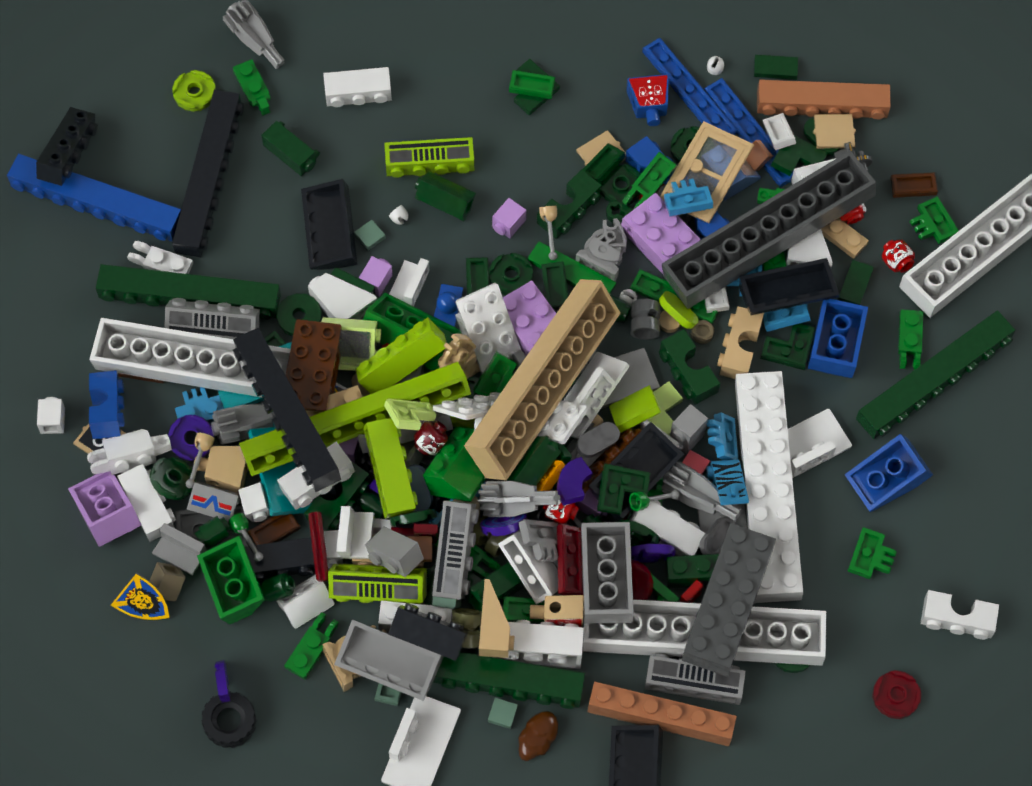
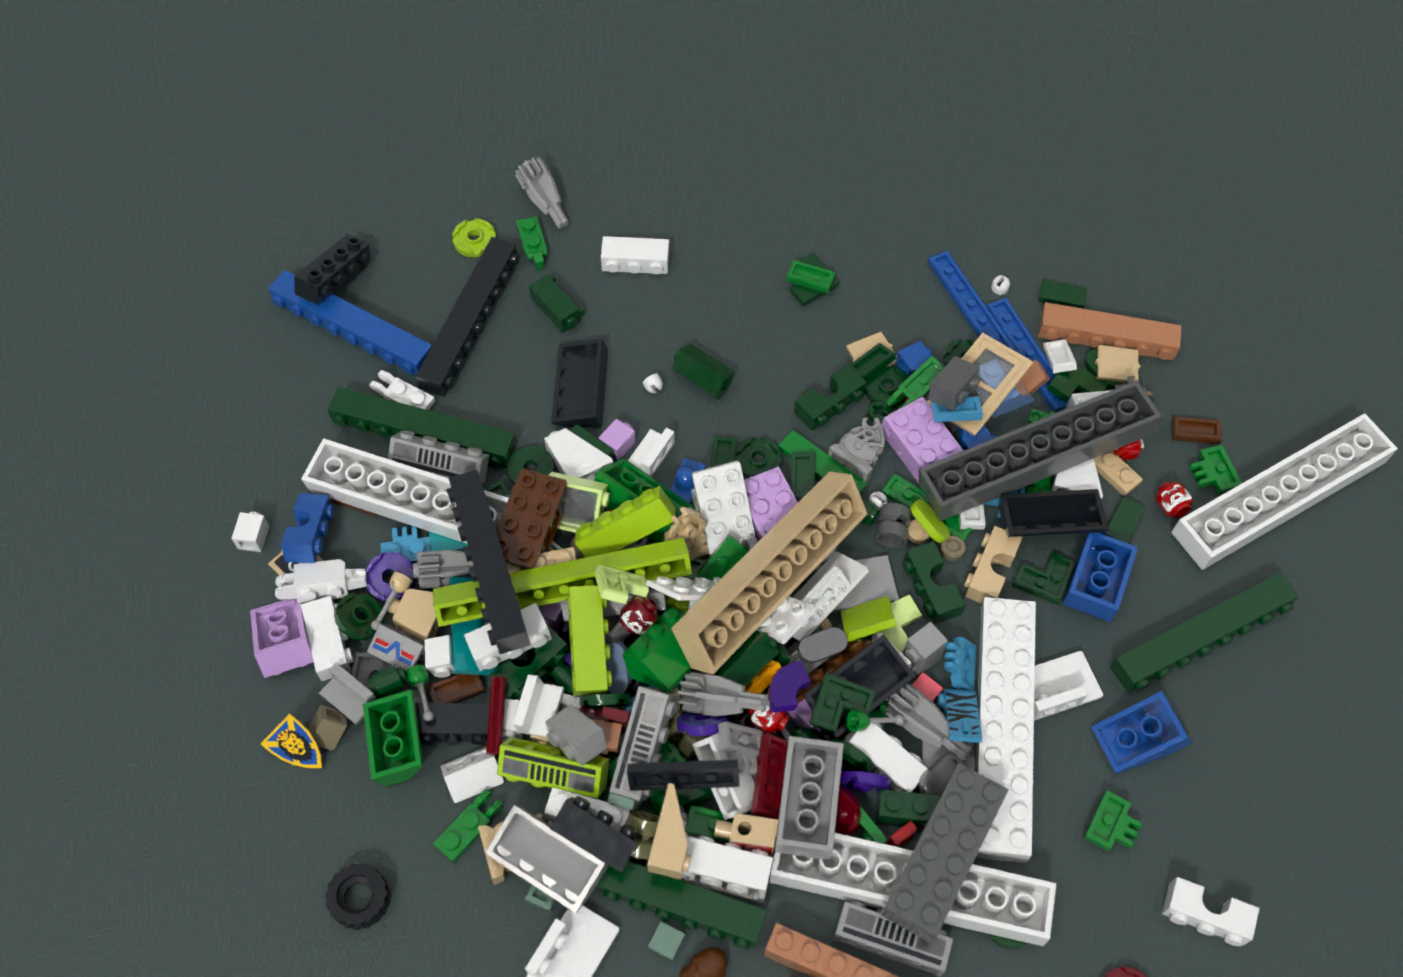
camera: 10 degrees right, 5 degrees down
(222, 681) = (358, 850): dark purple tile -> none
(277, 587) = (442, 754): dark green brick -> none
(369, 235) = (619, 399): sand green tile -> none
(436, 156) = (700, 330): lime brick -> none
(496, 570) = (683, 775): none -> black plate
(508, 218) = (765, 402): lavender brick -> none
(549, 214) = (806, 402): hinge -> none
(649, 97) = (928, 304): torso -> none
(683, 177) = (954, 383): none -> dark grey brick
(786, 317) = (1045, 545): dark azure hinge -> none
(910, 337) = (1179, 587): green hinge -> none

